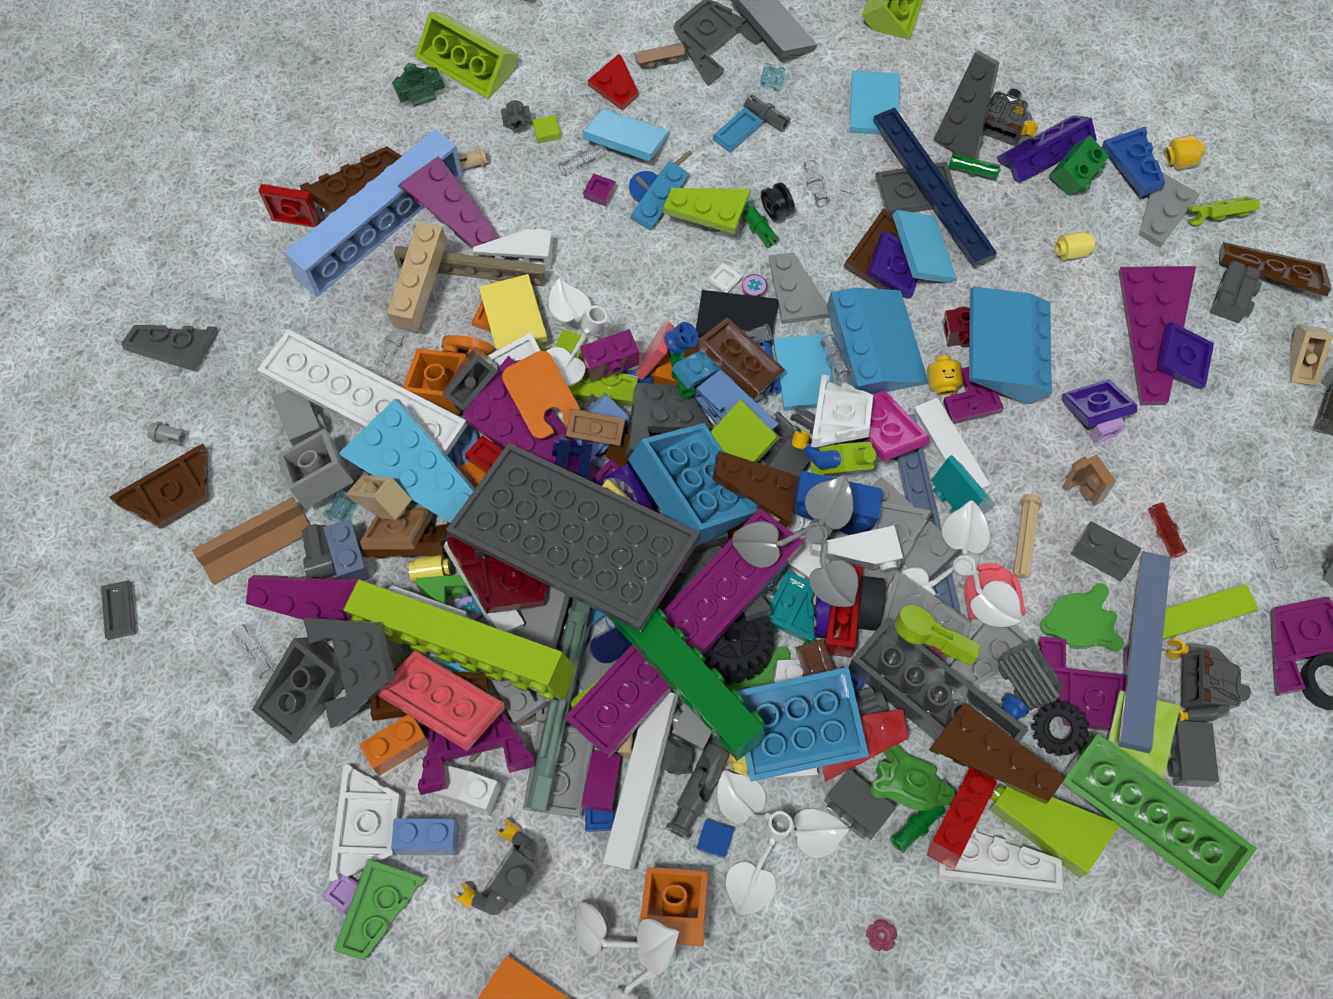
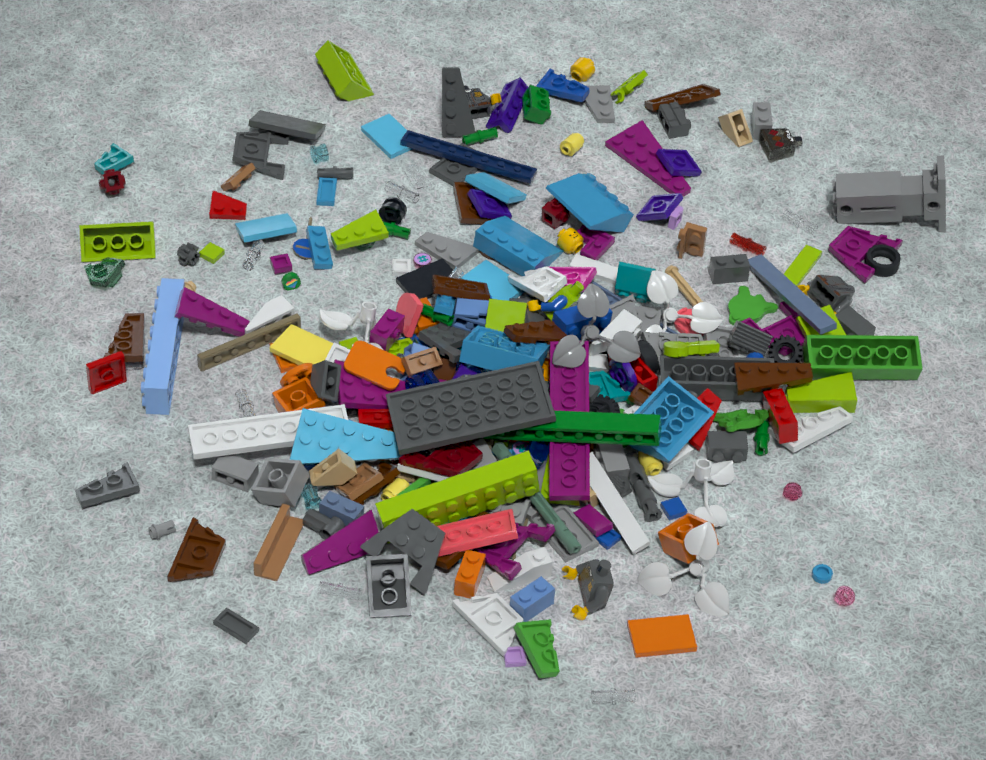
camera: 45 degrees left, 20 degrees down
(417, 276) = (233, 357): tan brick -> none
(586, 218) = (291, 281): none -> green tile
(681, 338) = (424, 292): blue wheel -> none
(836, 358) = (508, 263): clear pin -> none

